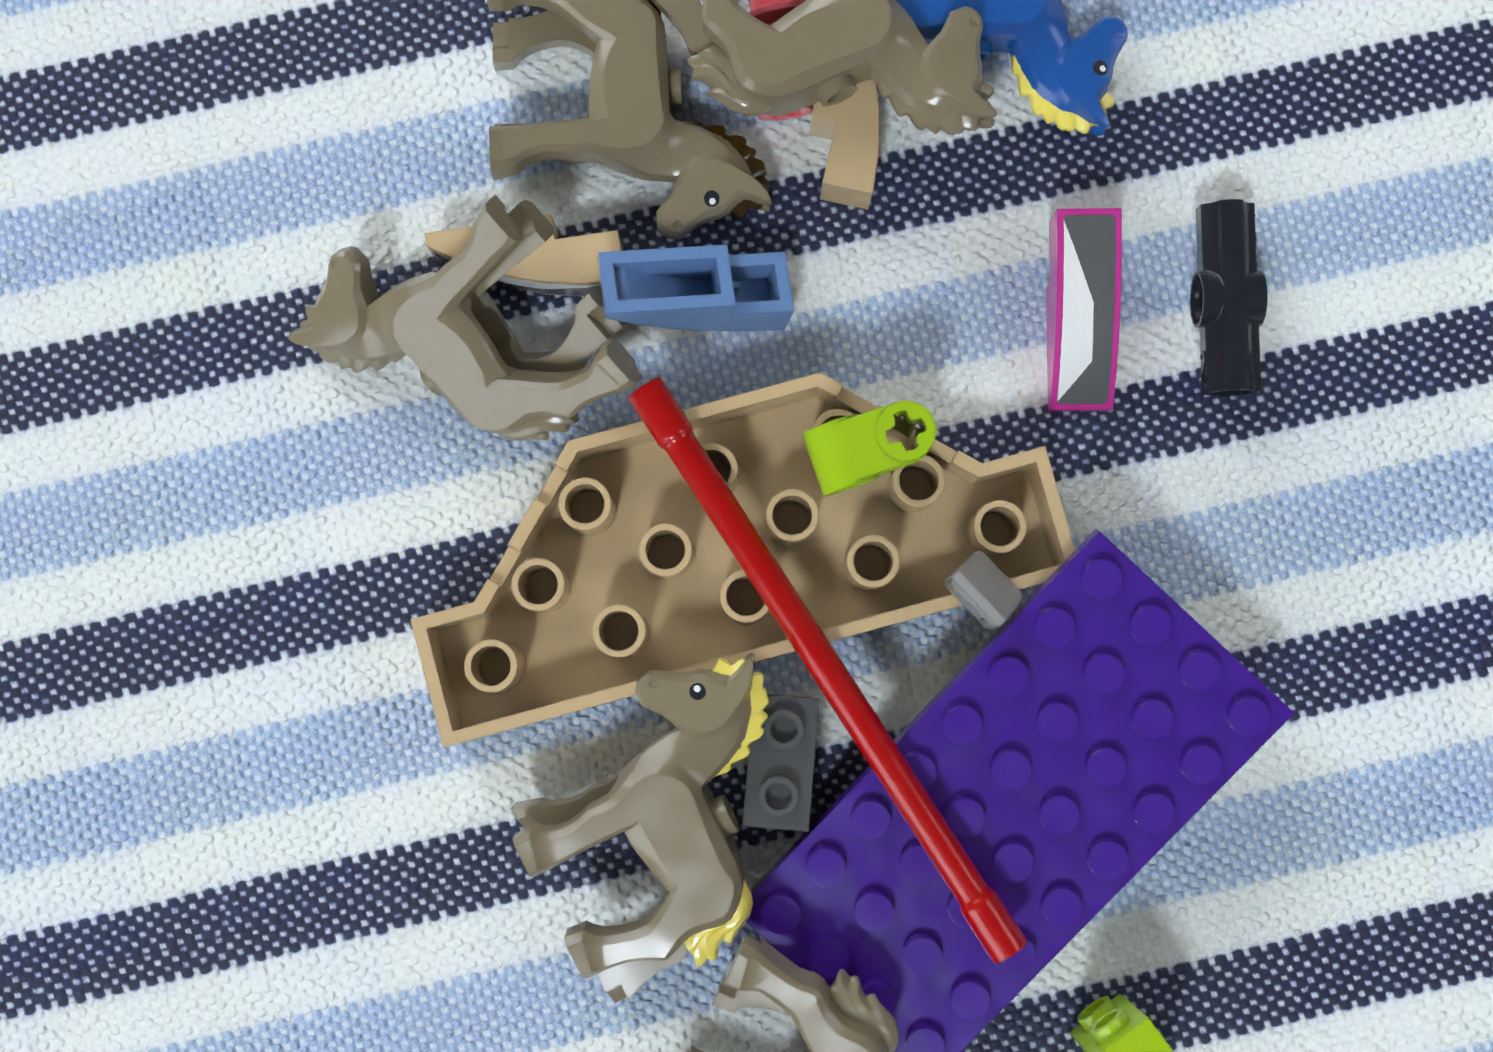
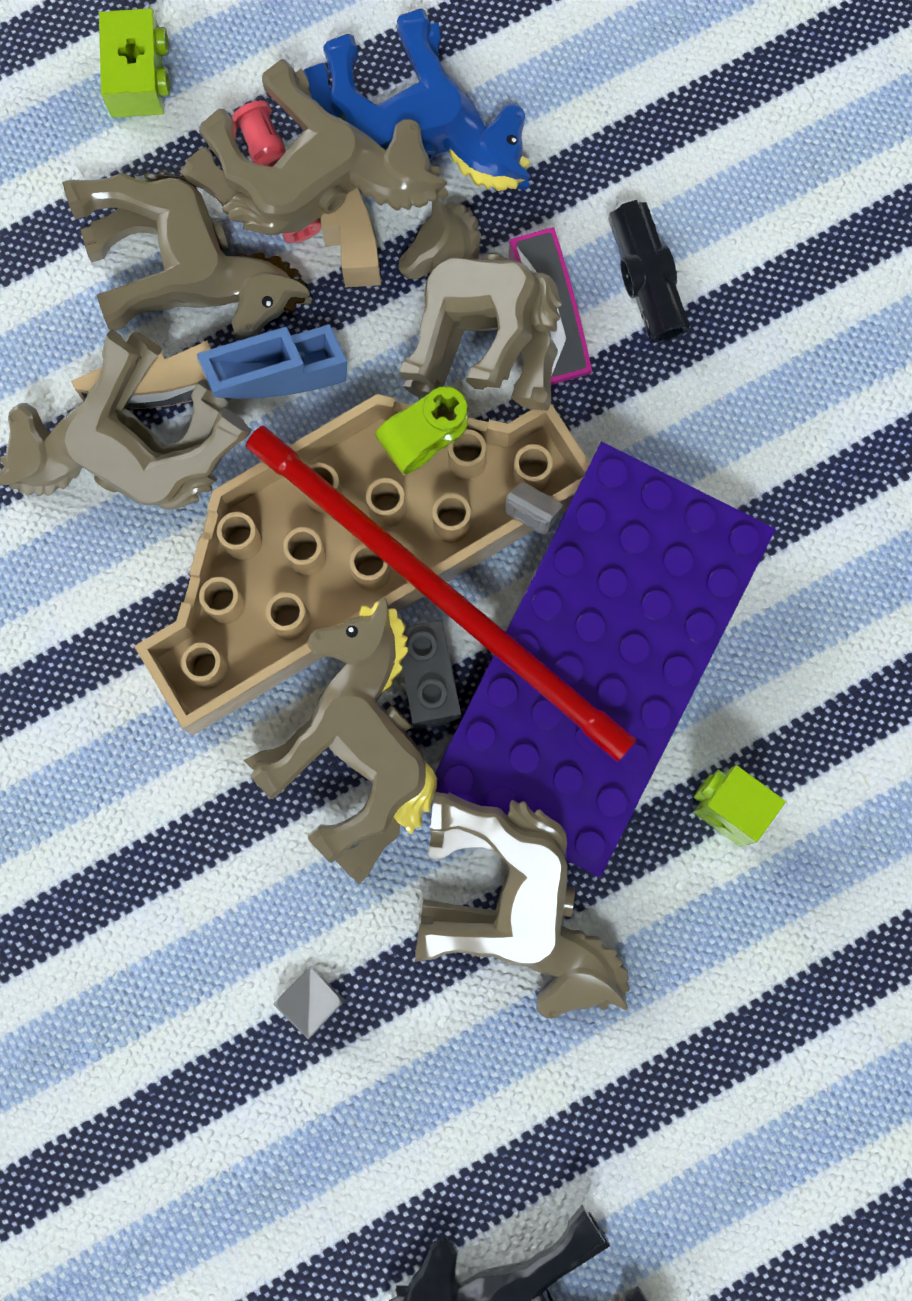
camera: 15 degrees left, 5 degrees down
(998, 278) = (479, 296): none -> dark tan animal

